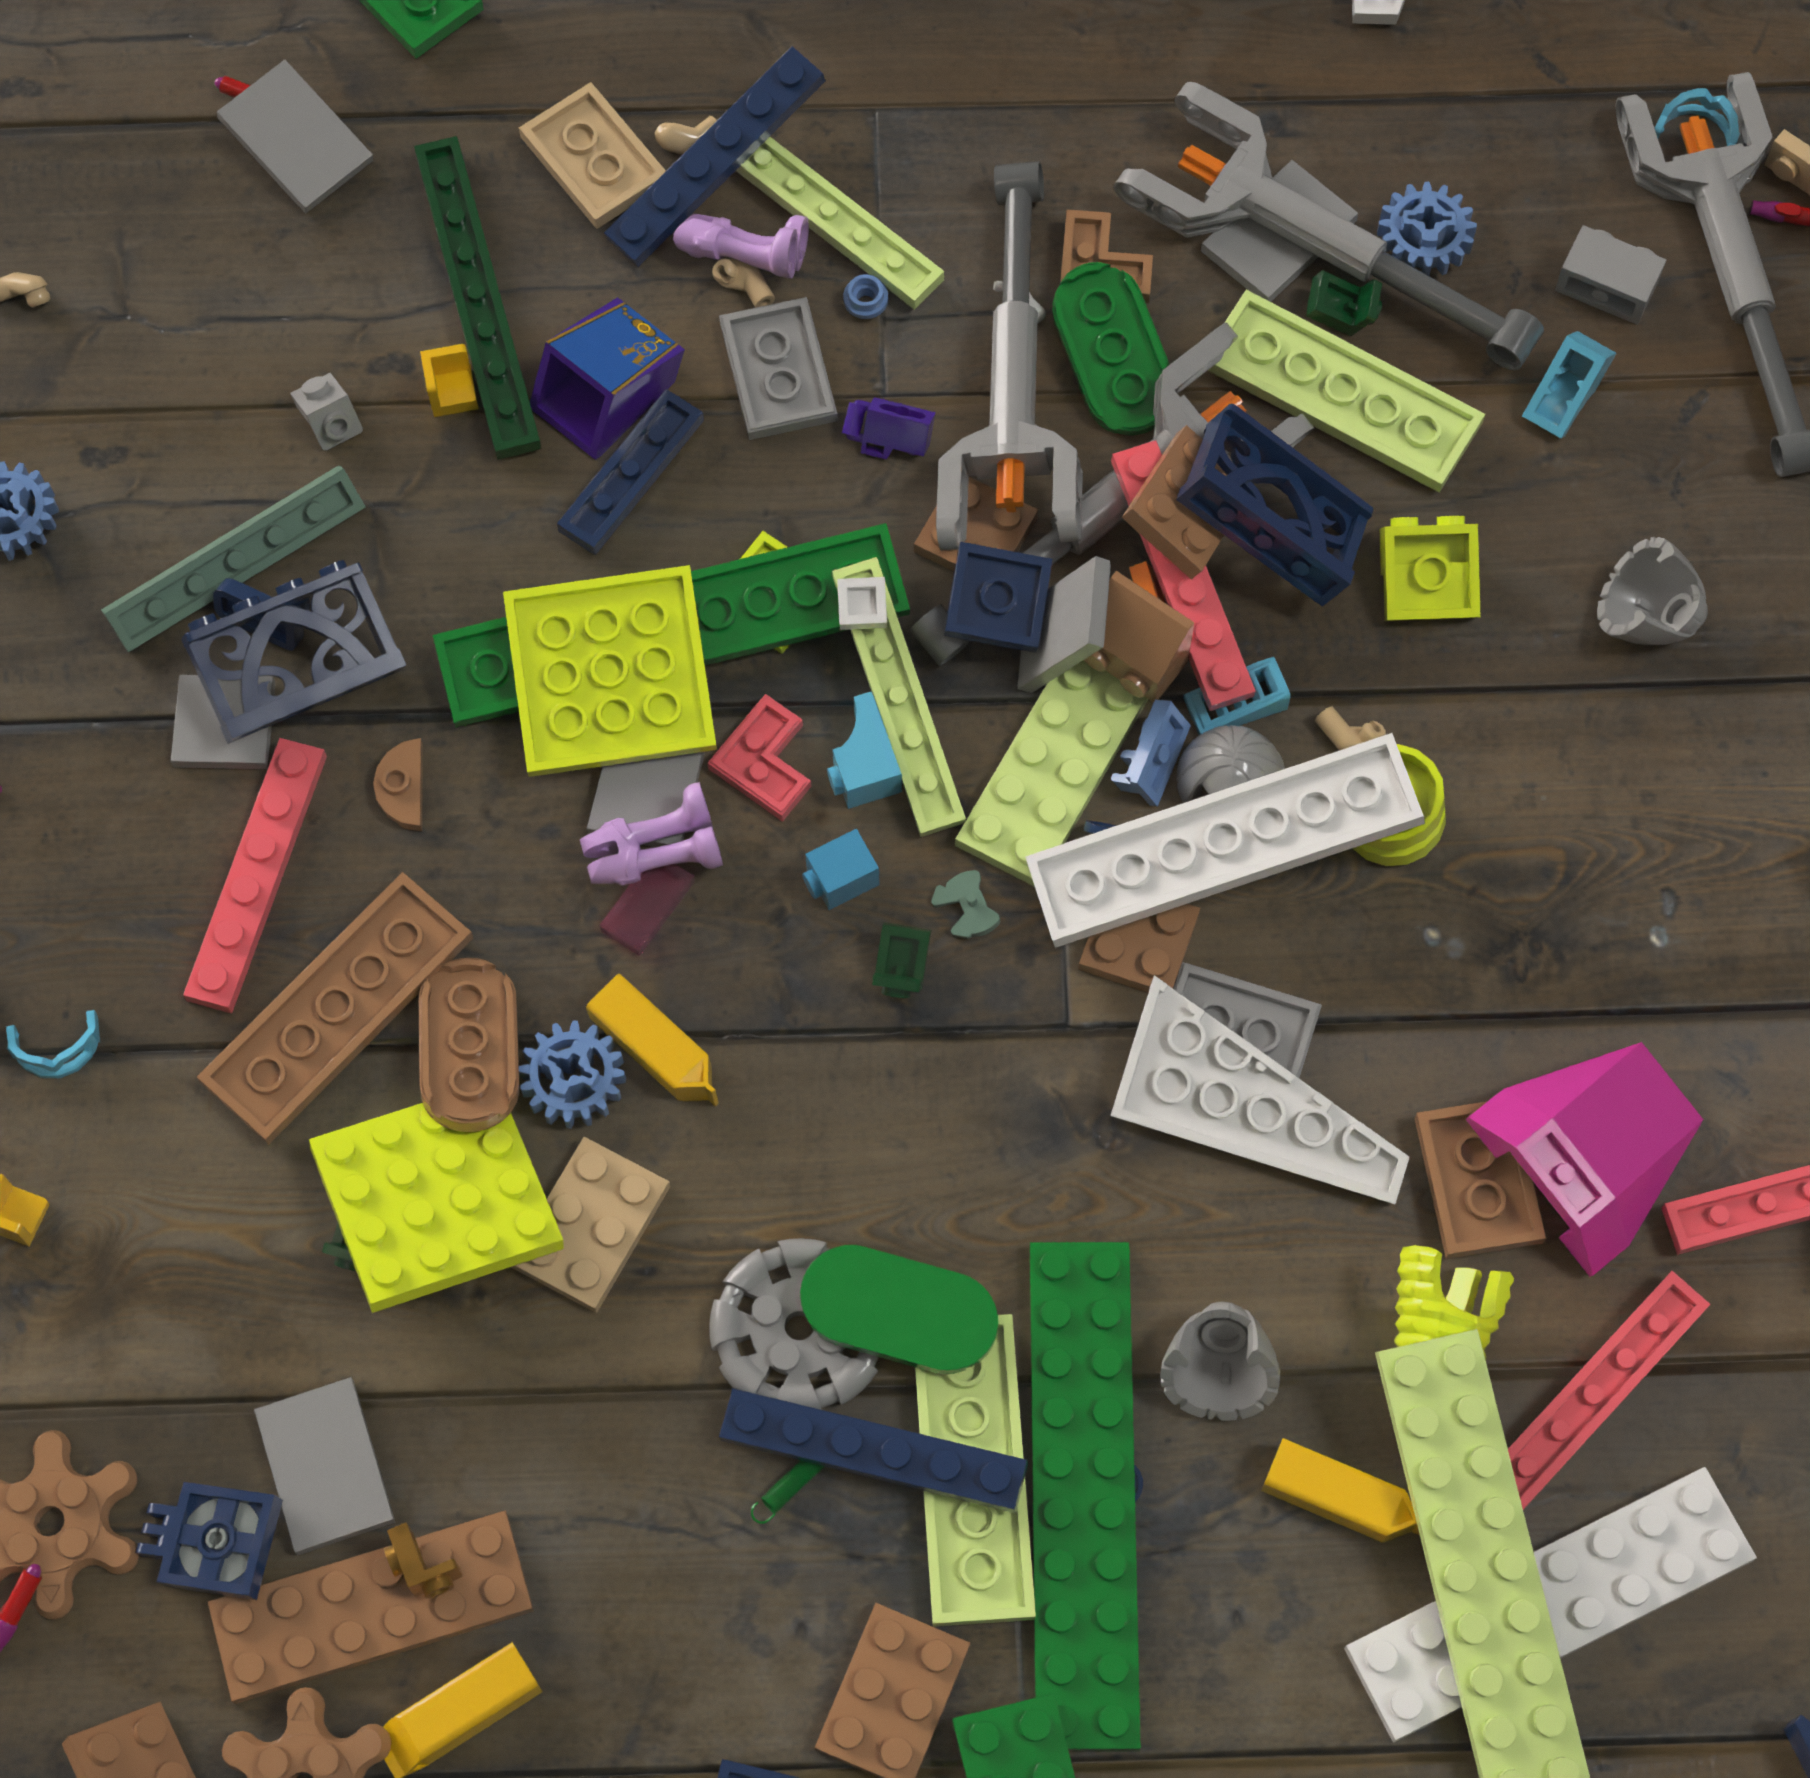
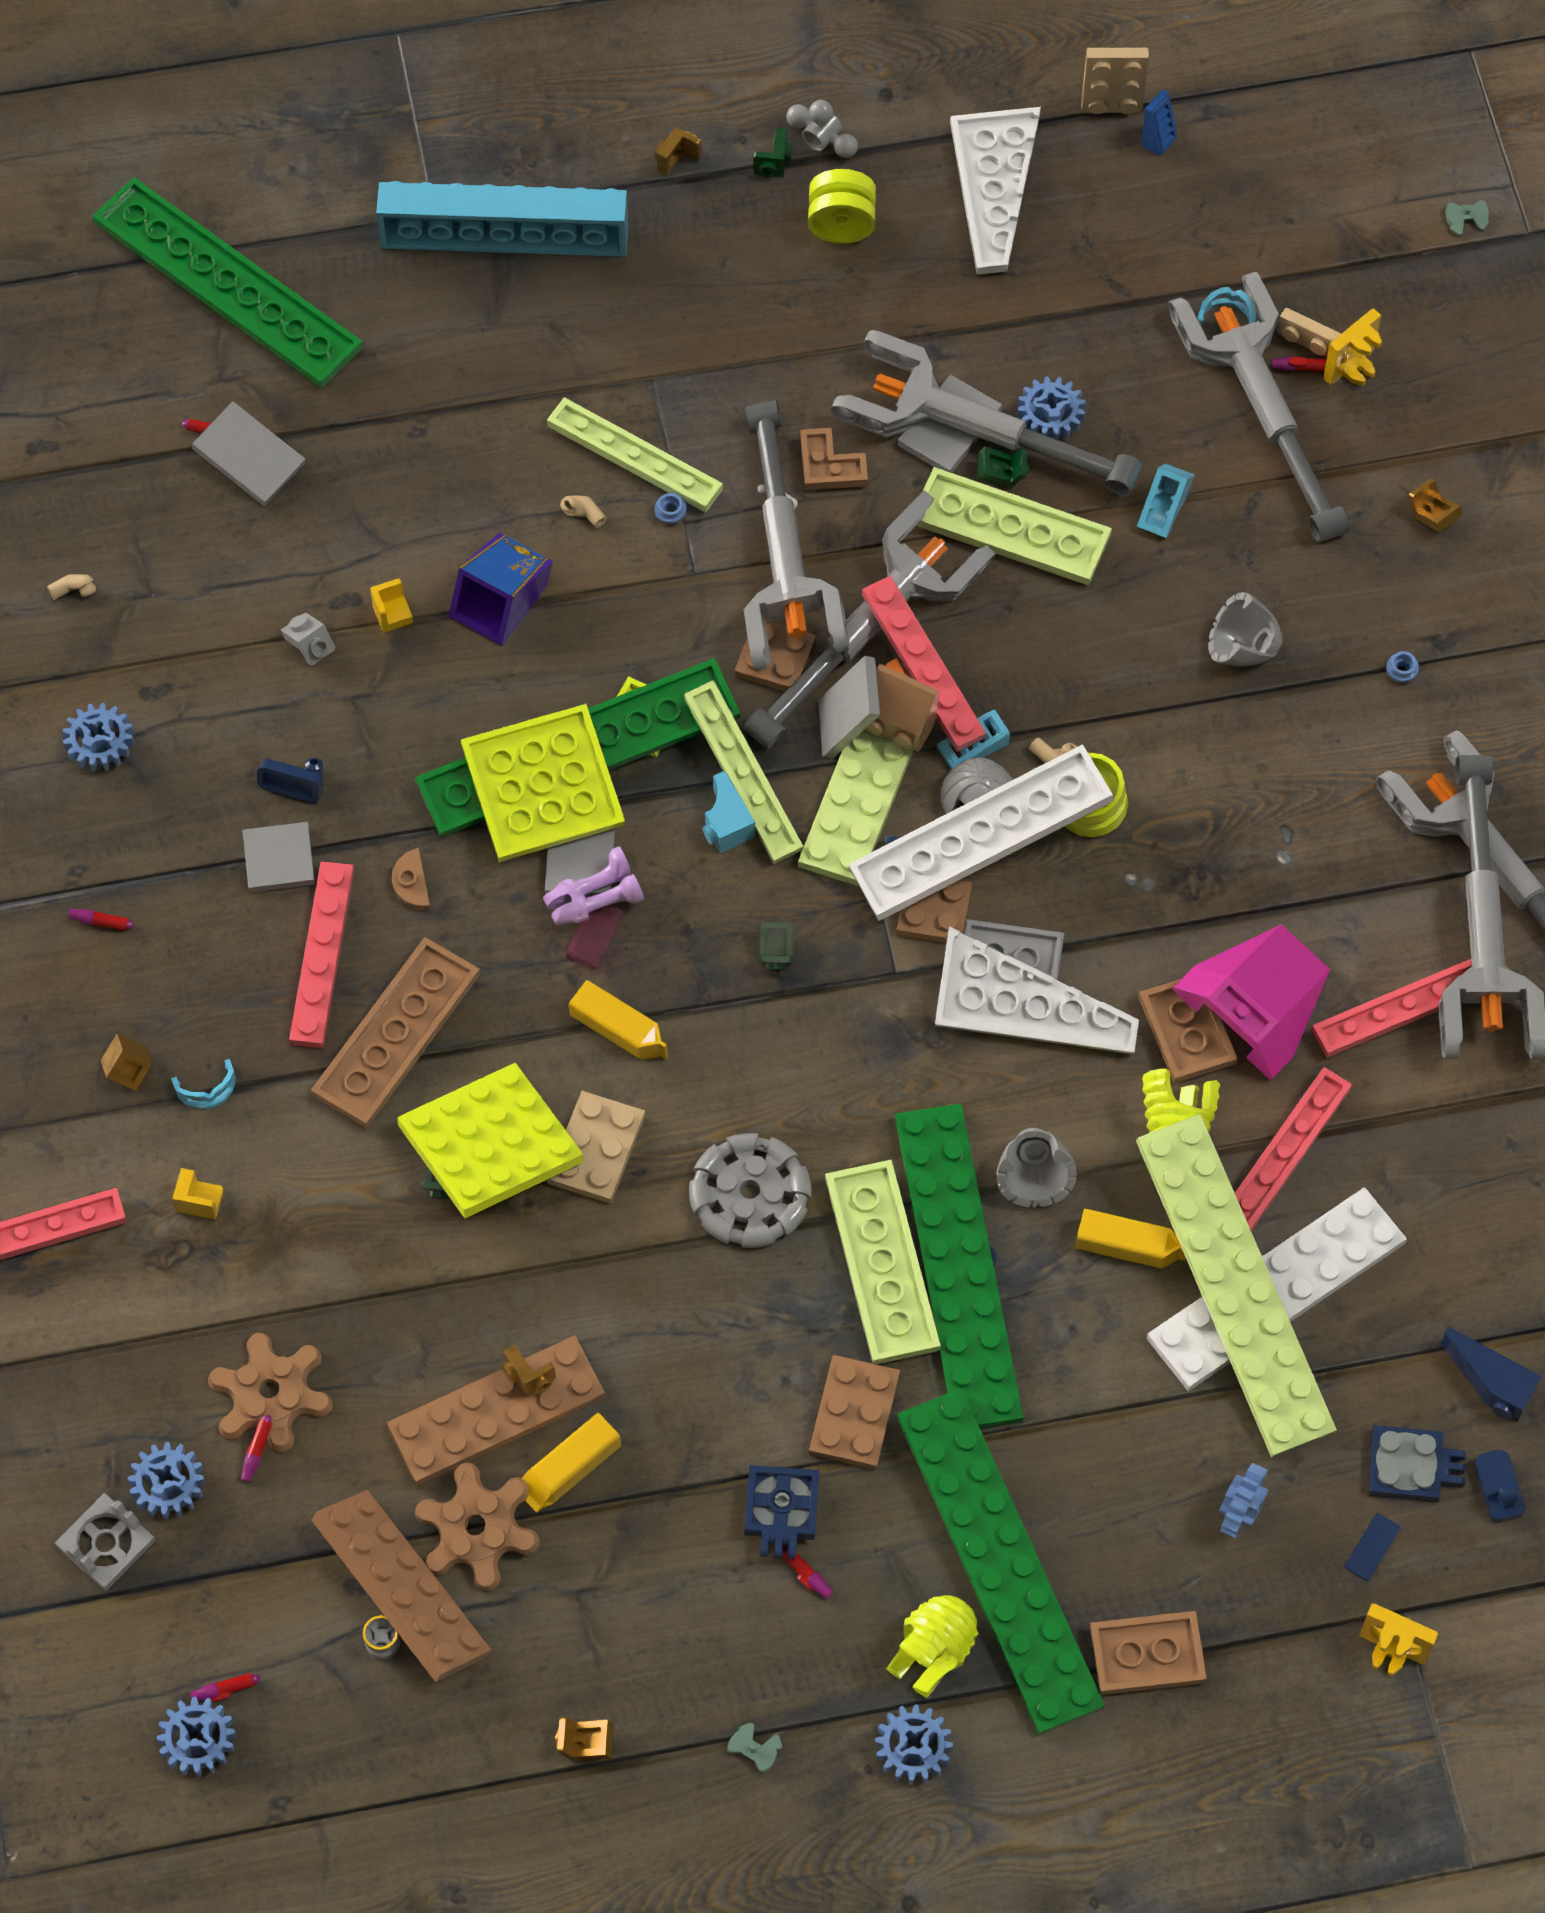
camera: 10 degrees left, 5 degrees down
(213, 1539) = (382, 1382): dark blue piece -> none
(234, 555) = (267, 742): sand green plate -> none
(260, 707) = (305, 840): dark blue fence -> none
(324, 1466) = (447, 1326): light grey tile -> none
(468, 1045) = (492, 1042): medium nougat tile -> none
(477, 298) = (399, 546): dark green plate -> none
(578, 1055) = (577, 1059): medium blue gear -> none
(592, 154) = (462, 437): tan plate -> none
(630, 472) = (529, 649): dark blue plate -> none
(680, 138) = (525, 418): tan arm -> none
(715, 156) = (548, 427): dark blue plate -> none
(717, 239) = (559, 483): lavender piece -> none
(752, 763) = (649, 830): coral tile -> none
(778, 368) = (618, 565): light grey tile -> none
(787, 1487) = (768, 1283): green piece -> none
(841, 870) = (724, 892): dark azure brick -> none
(862, 603) = (709, 711): white plate -> none
(874, 1450) = (814, 1258): dark blue plate -> none
(889, 426) = (703, 593): dark purple piece -> none
(899, 1309) = (815, 1166): green tile -> none
(977, 917) = (810, 893): sand green piece -> none
(998, 597) = (800, 695): dark blue plate -> none
(1110, 346) = (846, 518): green tile -> none
(1156, 753) = (925, 785): medium blue plate -> none
(1165, 521) = (919, 613): medium nougat plate -> none
(1238, 510) = (954, 613): dark blue fence -> none
(1430, 569) = (1090, 637): neon yellow plate -> none
(1610, 274) = (1182, 422): light grey brick -> none

